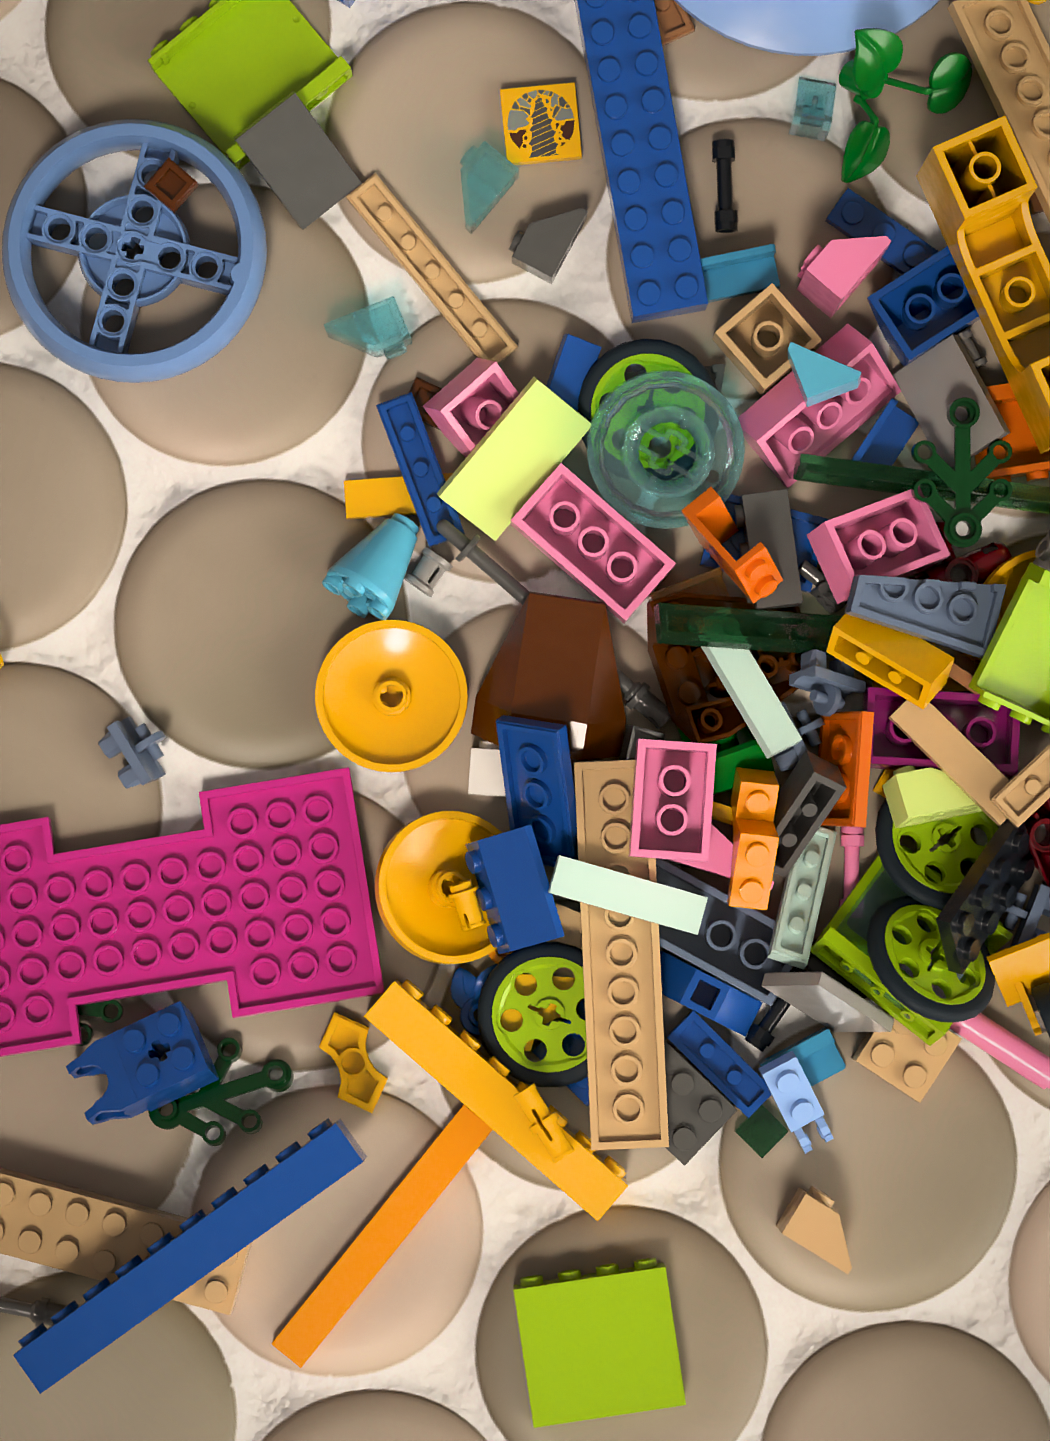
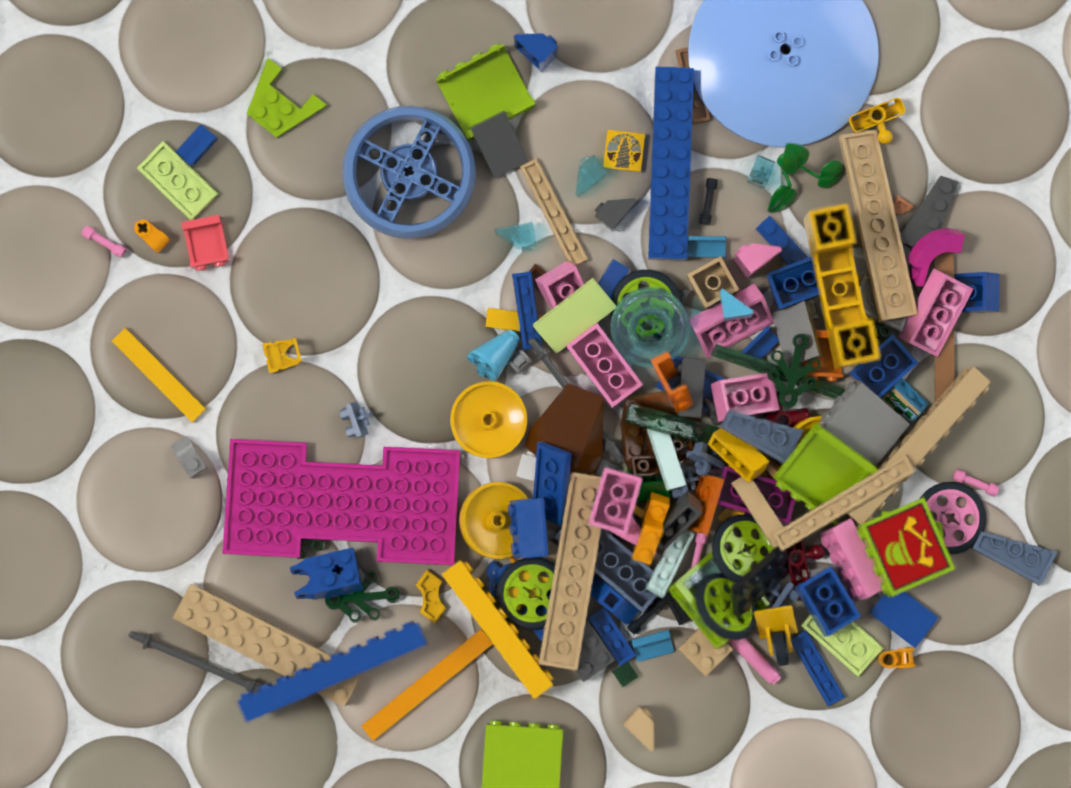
camera: 20 degrees right, 0 degrees up
(171, 185) = (434, 145): reddish brown tile -> none
(466, 904) = (503, 530): yellow pin -> none
(544, 1123) = (518, 645): yellow pin -> none
(627, 895) = (583, 542): light aqua tile -> none
(795, 1098) = (644, 660): light blue hinge -> none
(827, 1001) = (670, 616): light grey tile -> none
(924, 797) = (740, 526): yellowish green slope -> none

